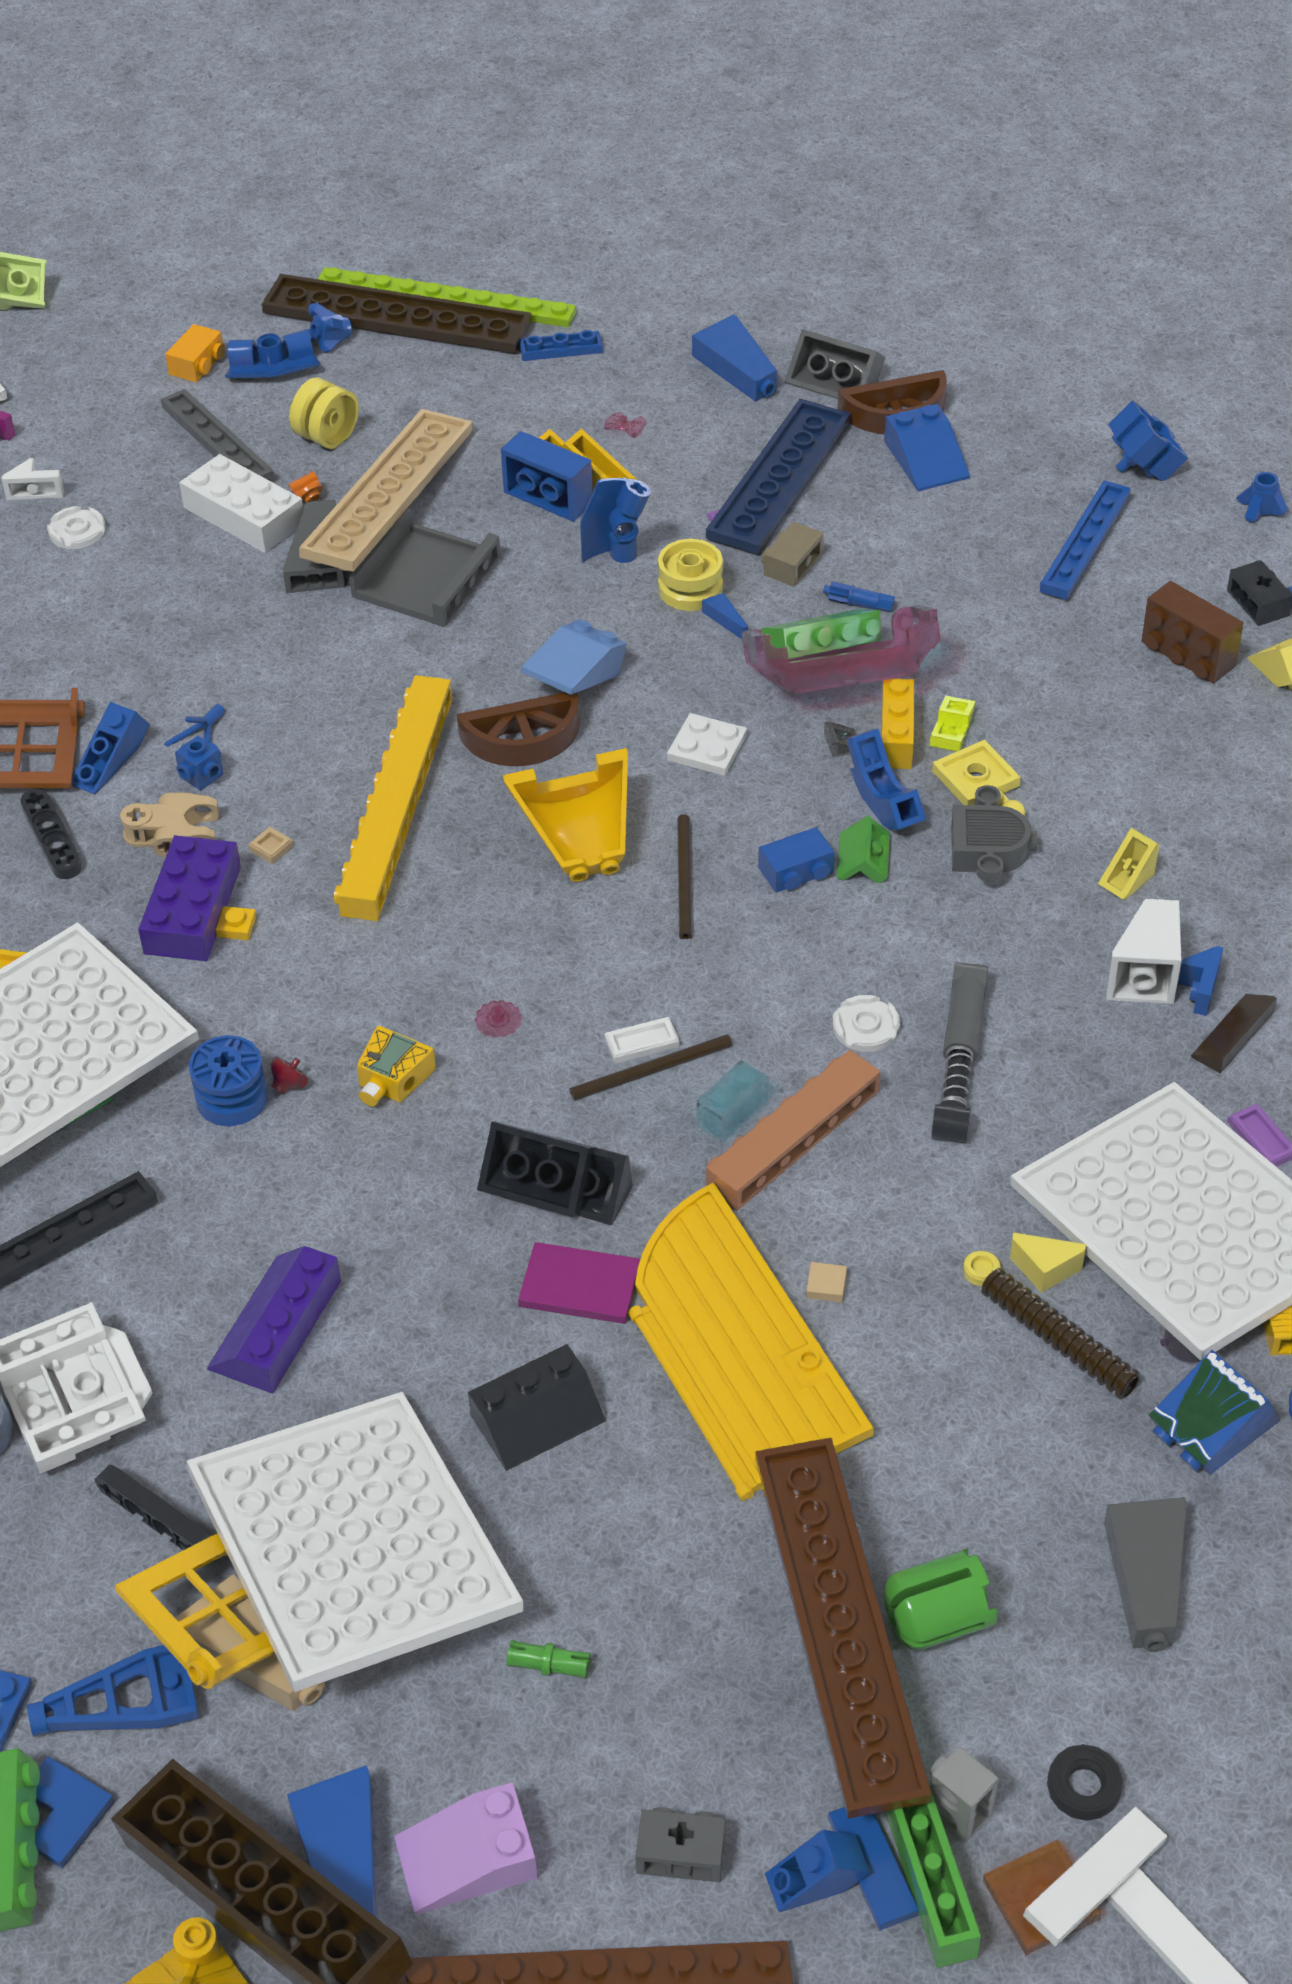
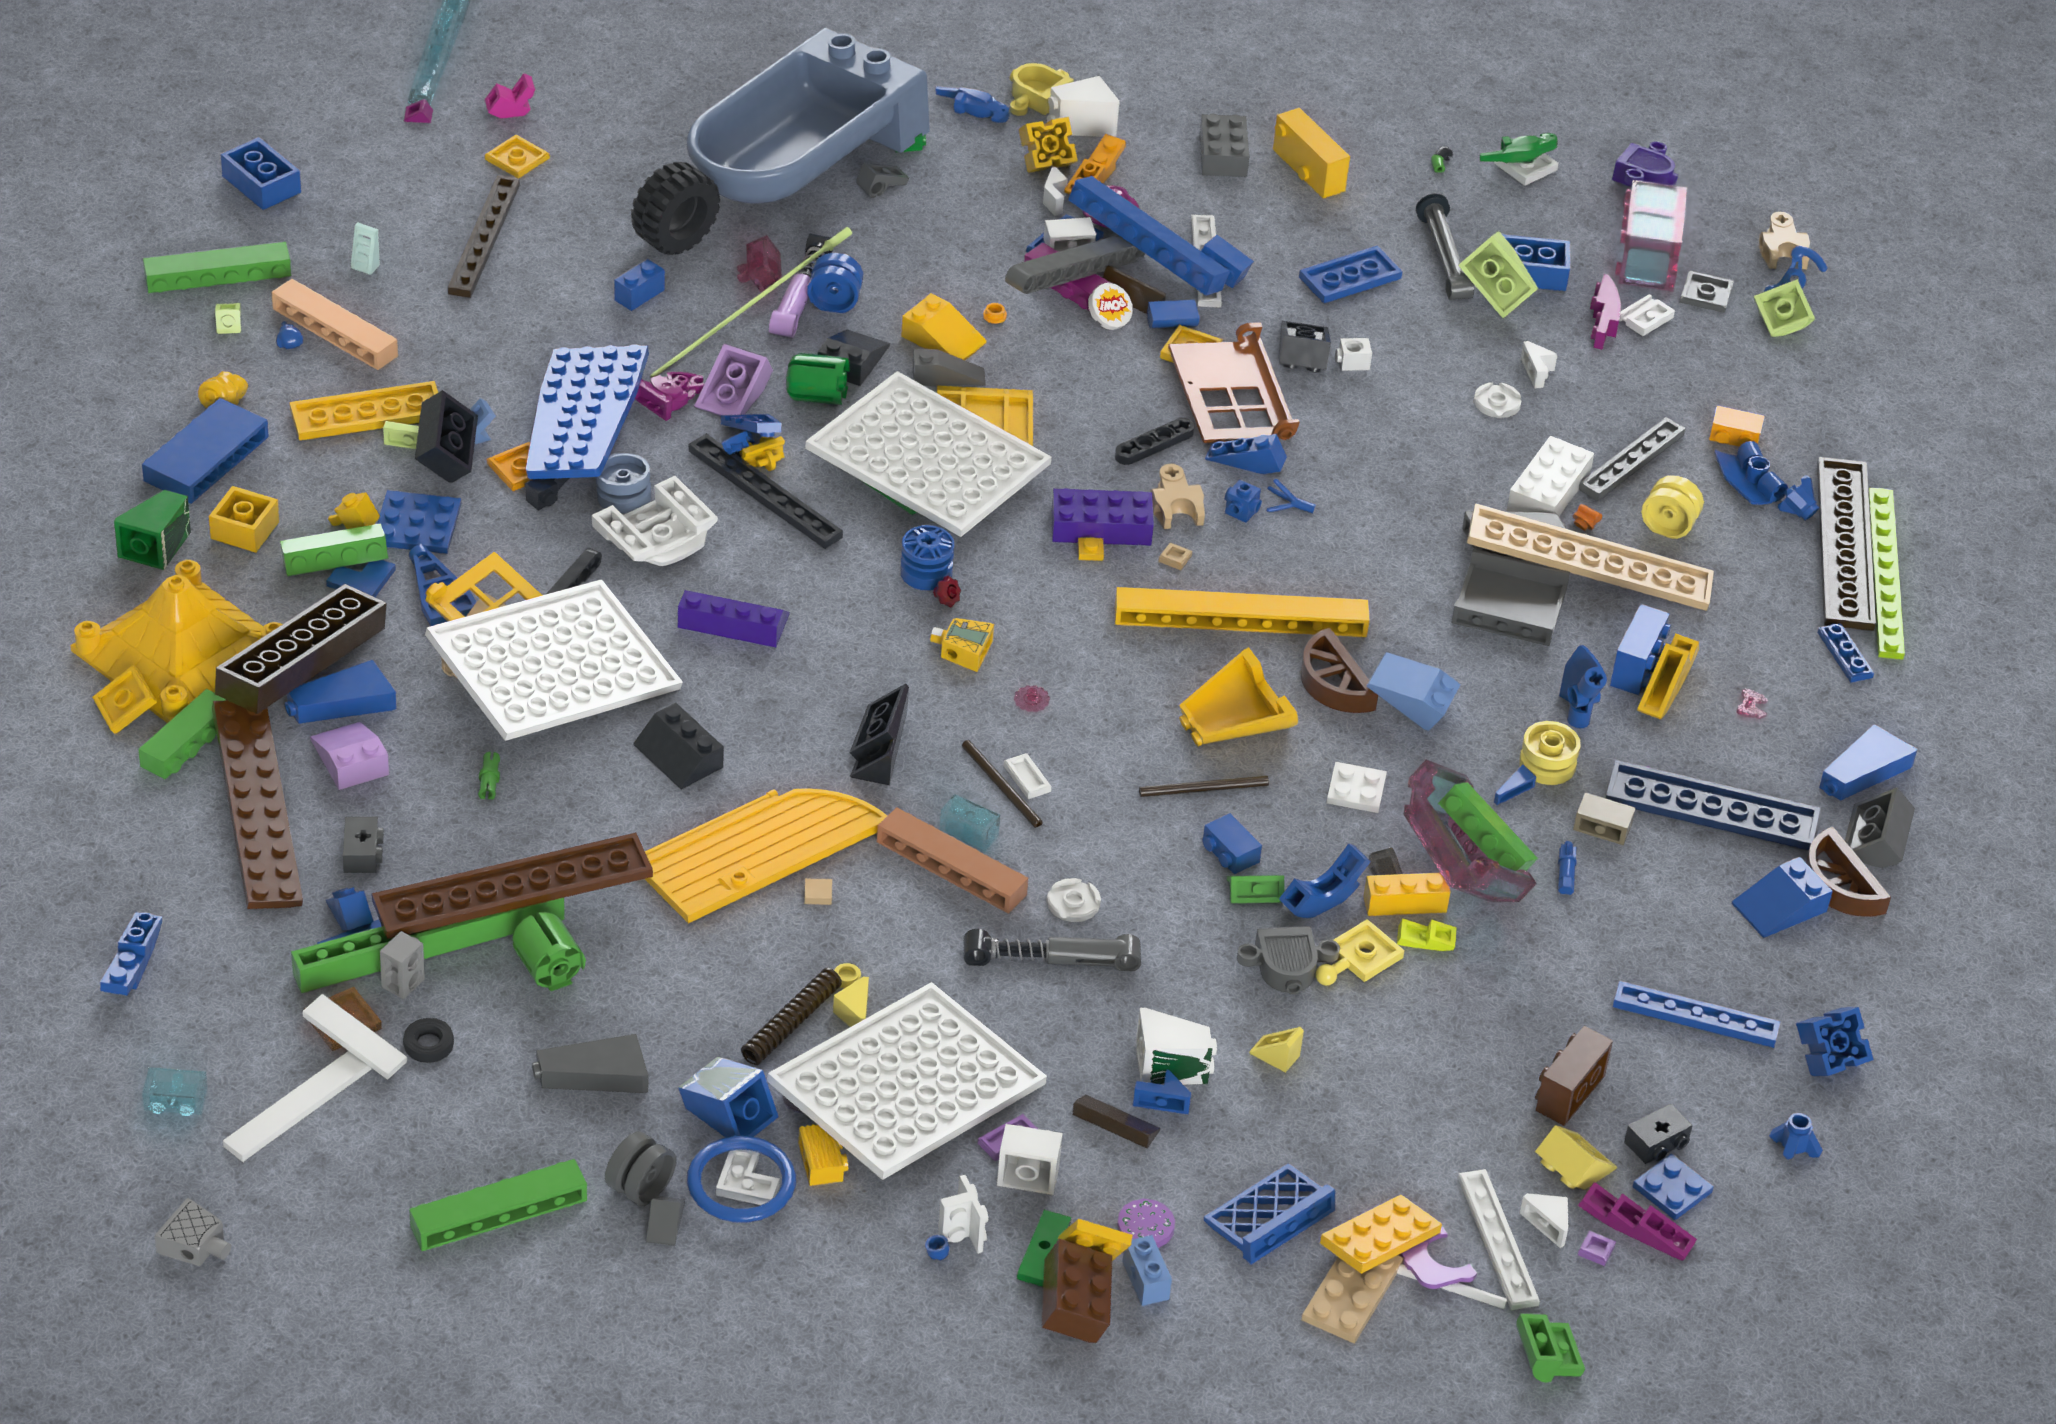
camera: 75 degrees right, 5 degrees down
(579, 1282) = (793, 761): magenta tile -> none

